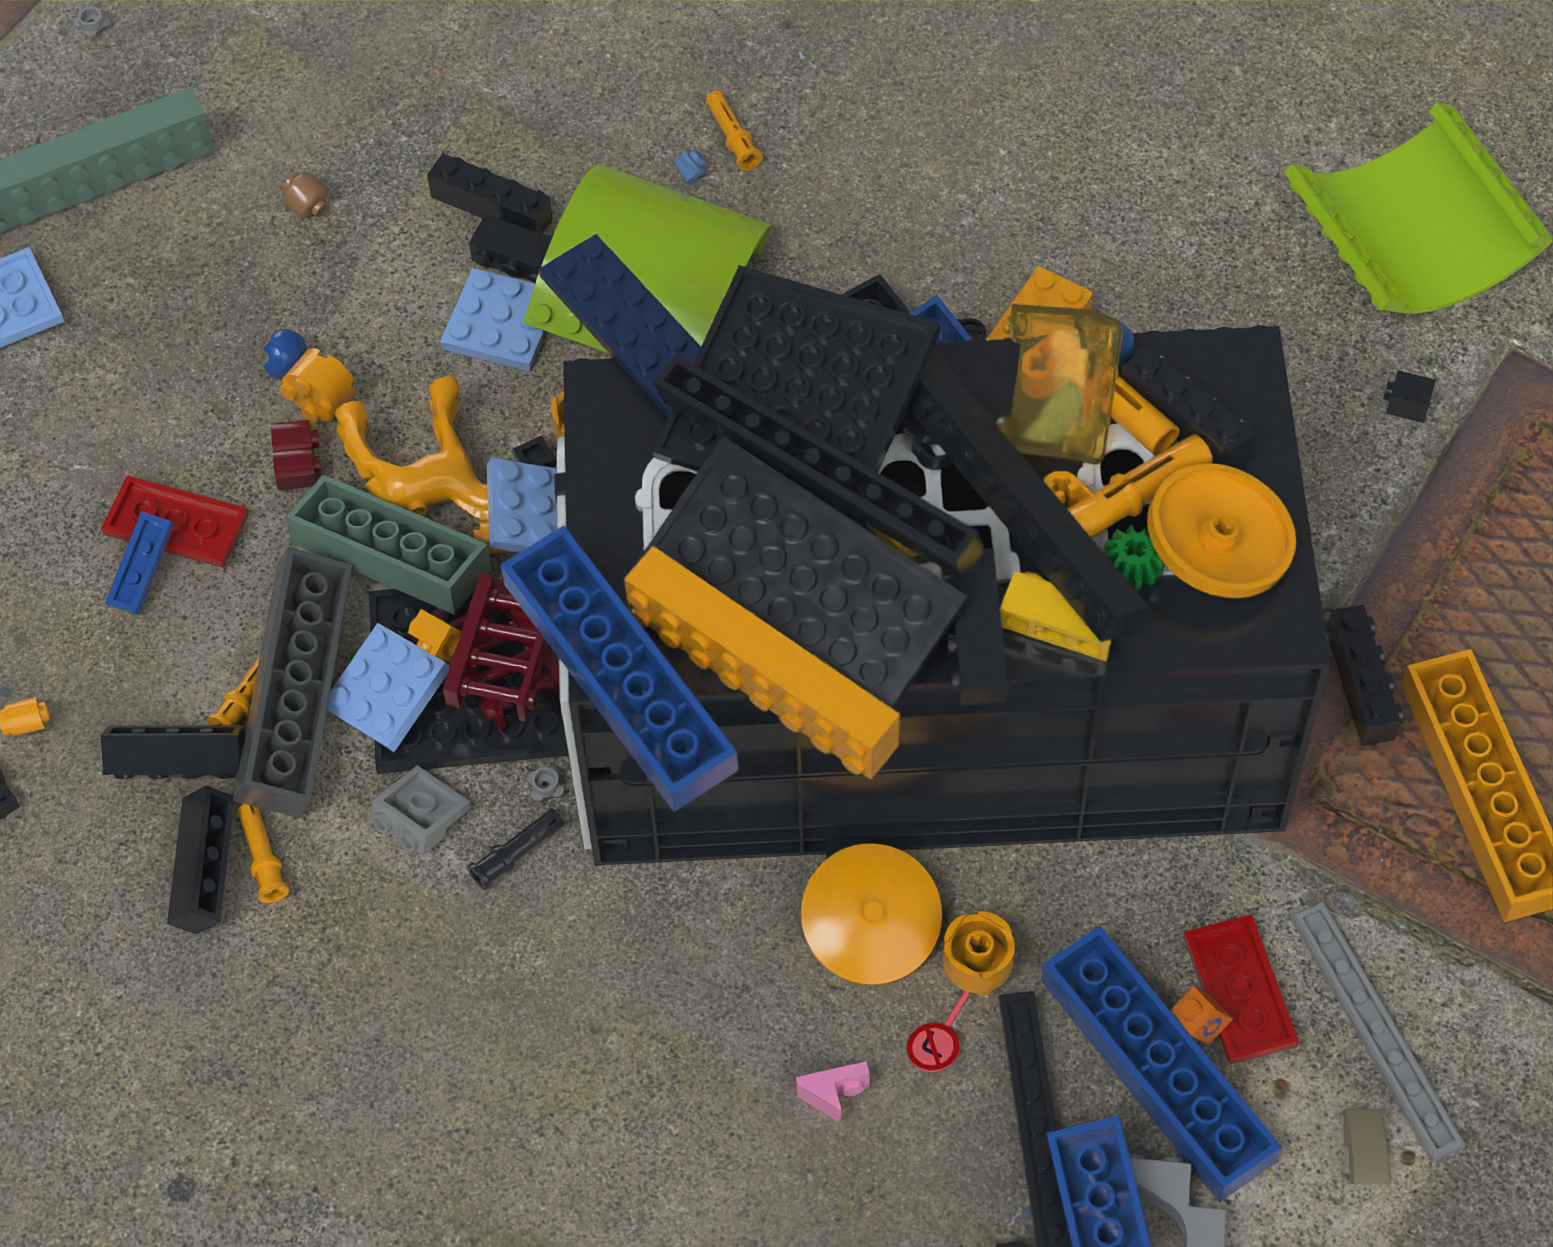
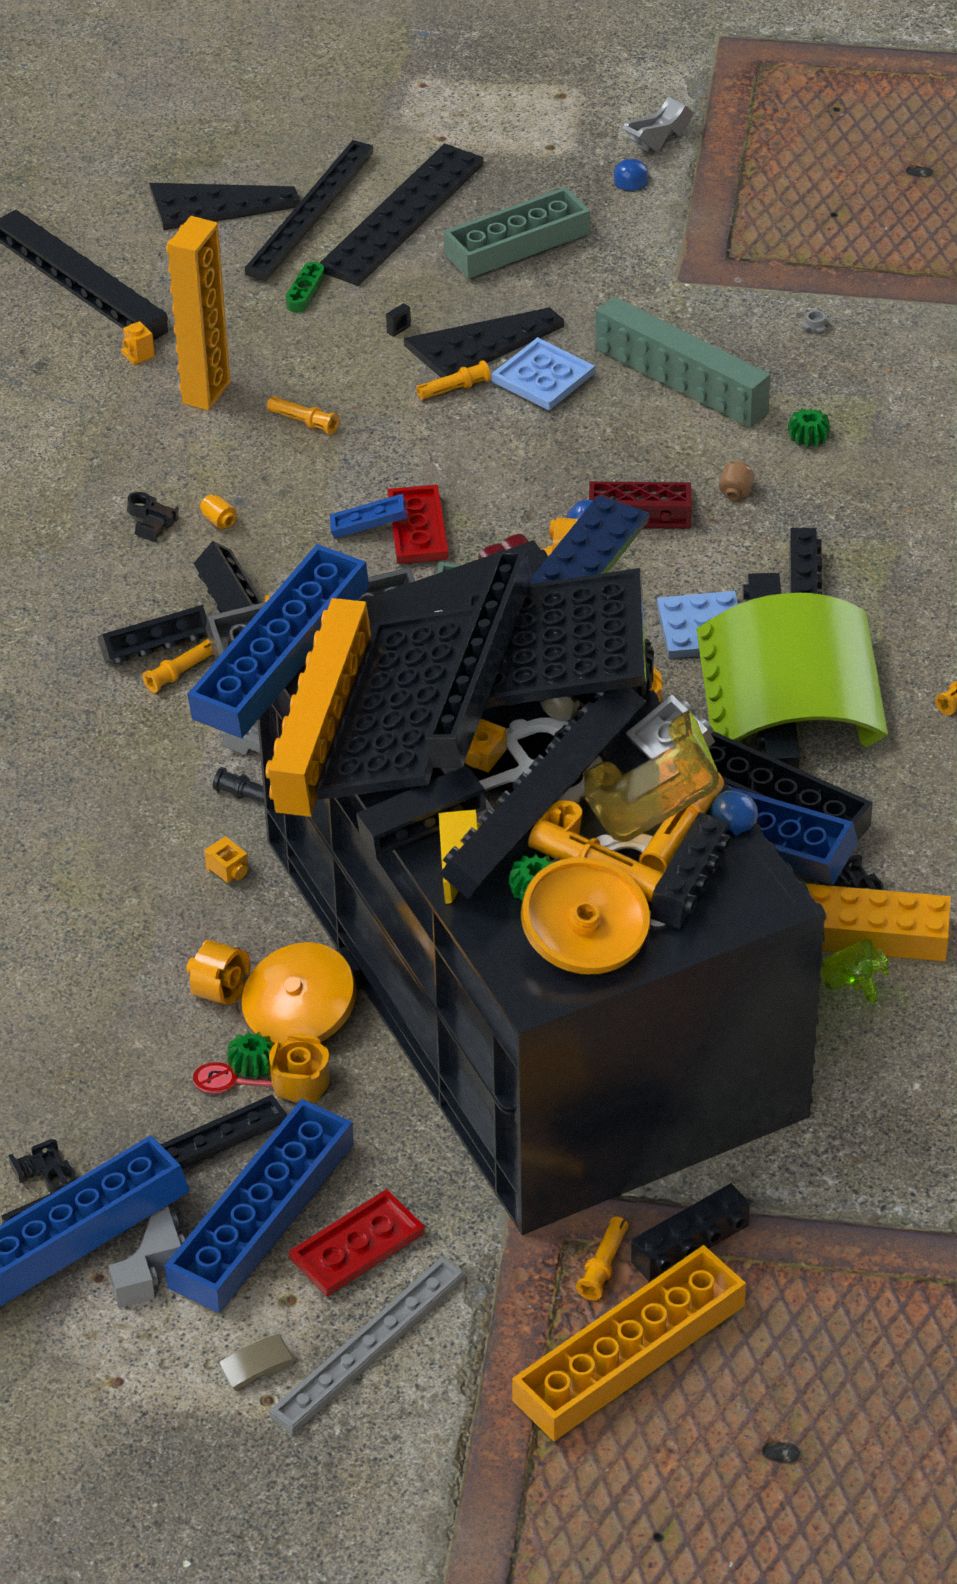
camera: 65 degrees right, 15 degrees down
(262, 97) = (809, 427): none -> green gear
(296, 303) = (662, 514): none -> dark red fence
(616, 904) = (231, 864): none -> light orange brick
(691, 165) = (919, 675): medium blue plate -> none
(798, 982) = (218, 972): none -> light orange brick
(823, 1087) = (147, 1023): bright pink slope -> none
(925, 983) = (249, 1054): none -> green gear
(974, 347) = (652, 732): none -> light grey plate
(1201, 1015) = (311, 1213): orange brick -> none
(1369, 775) = (599, 1267): none -> light orange pin

